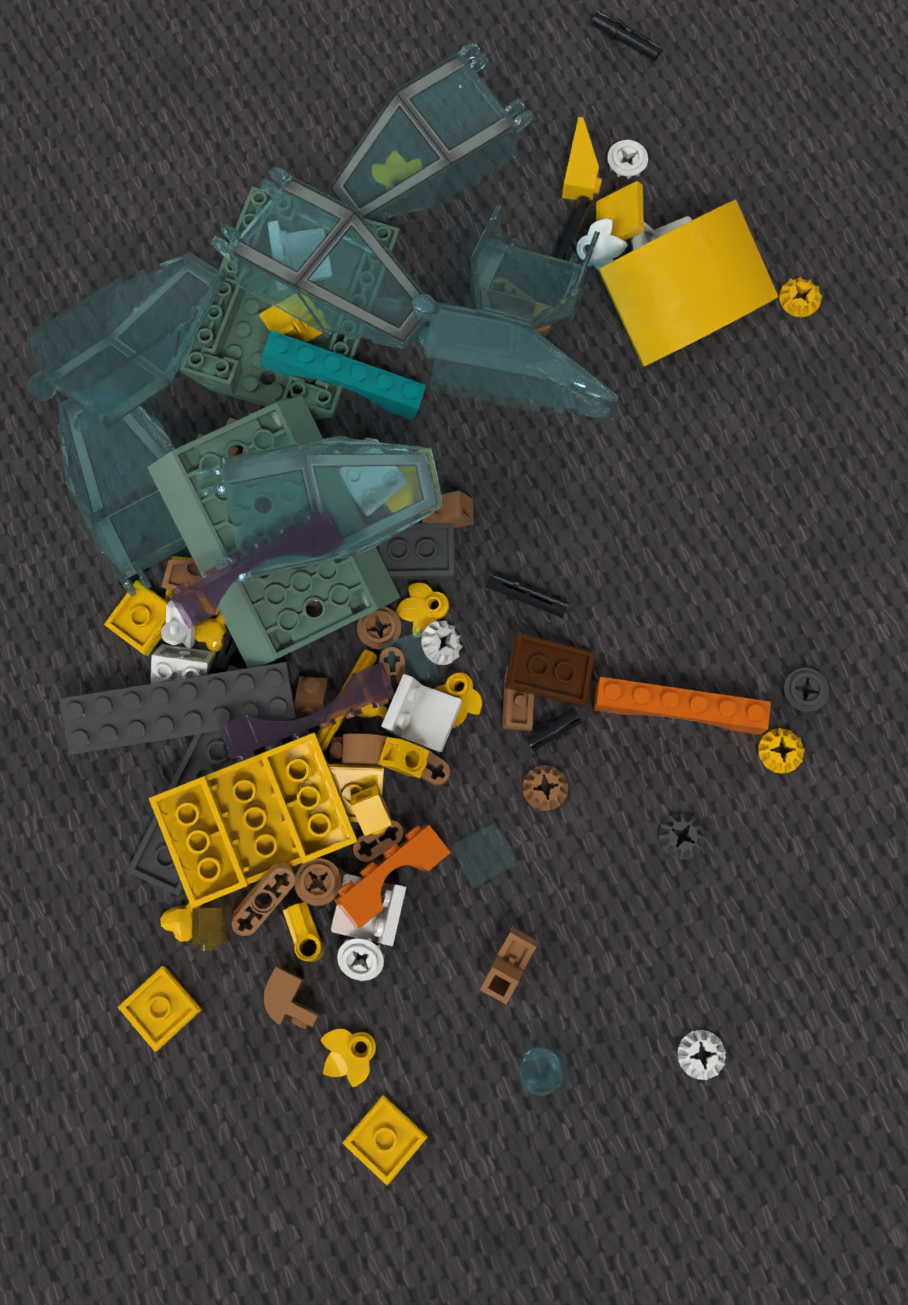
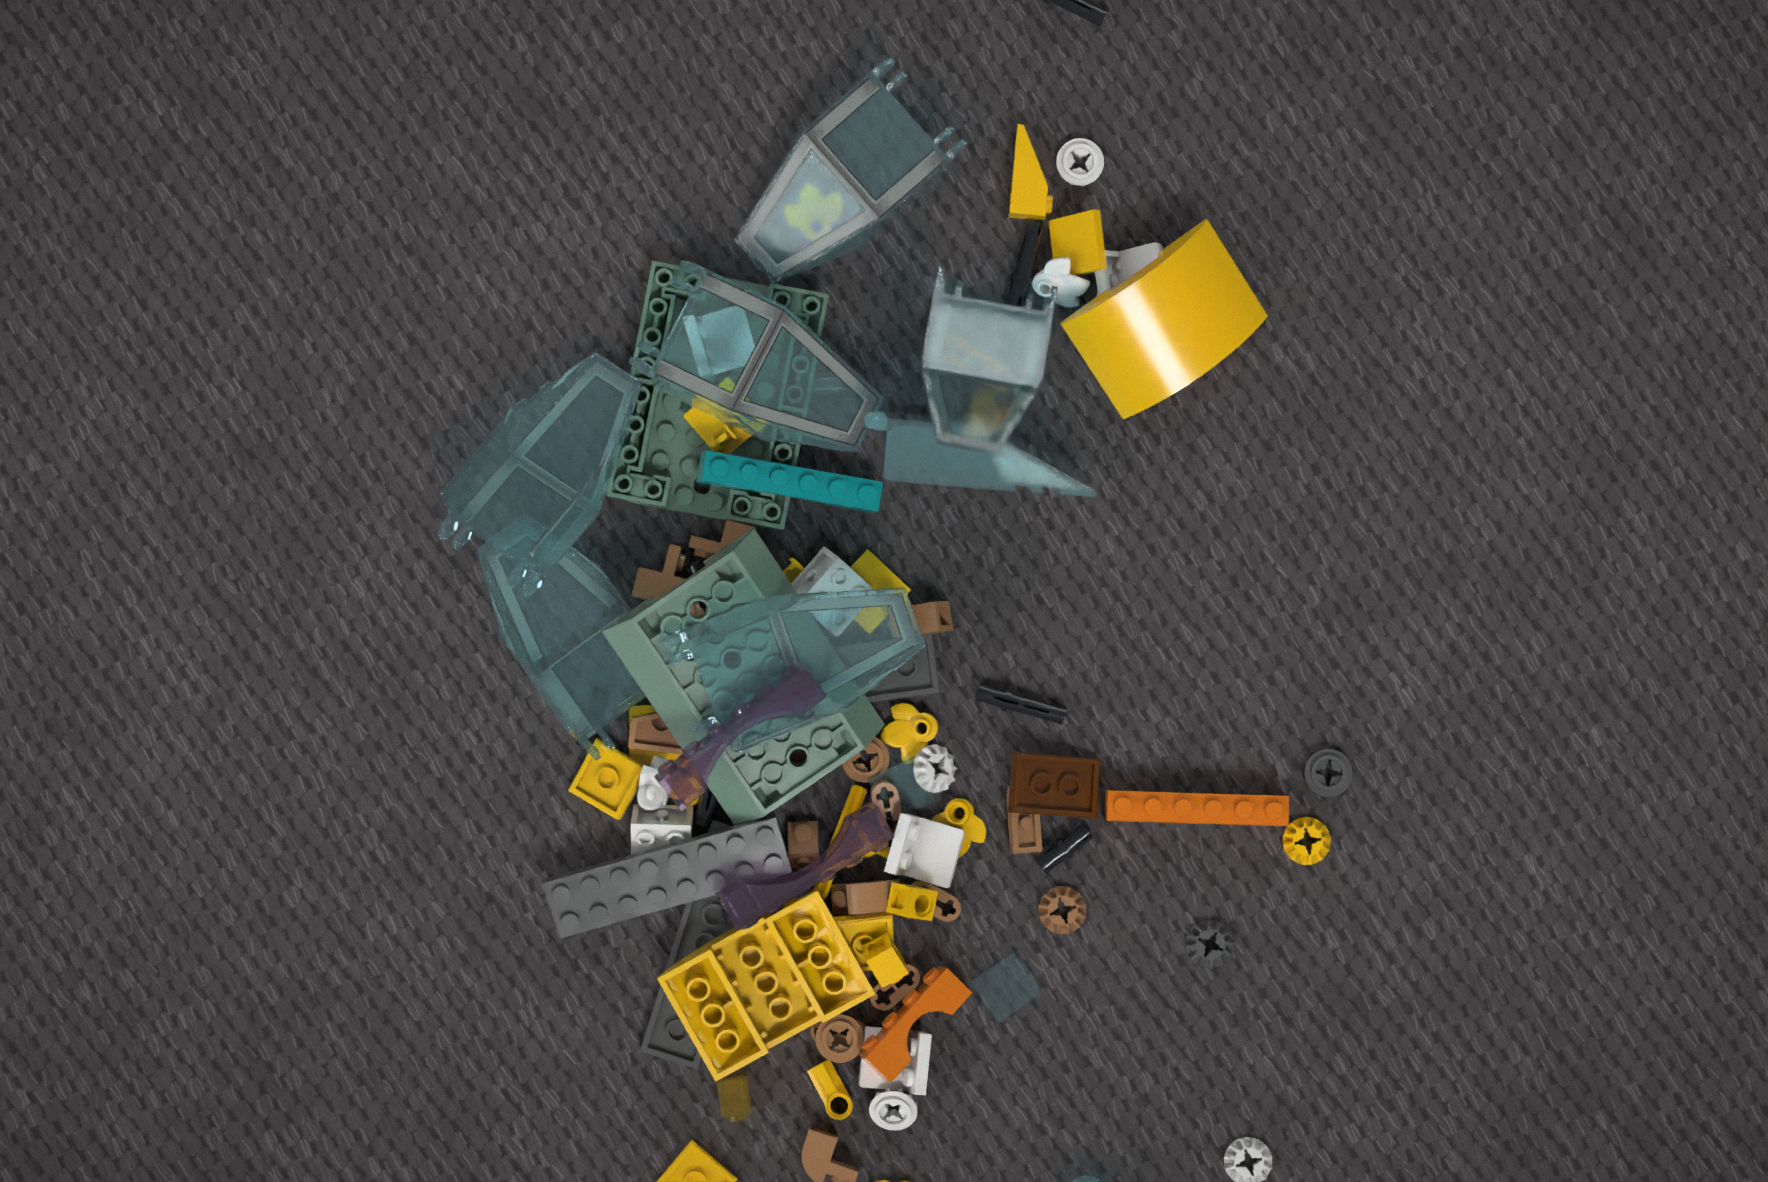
camera: 10 degrees left, 10 degrees up
(179, 921) = (702, 1093): yellow rock -> none
(261, 912) = (785, 1049): medium nougat beam -> none
(509, 965) = (1044, 1099): medium nougat brick -> none
(799, 307) = (1291, 328): yellow gear -> none

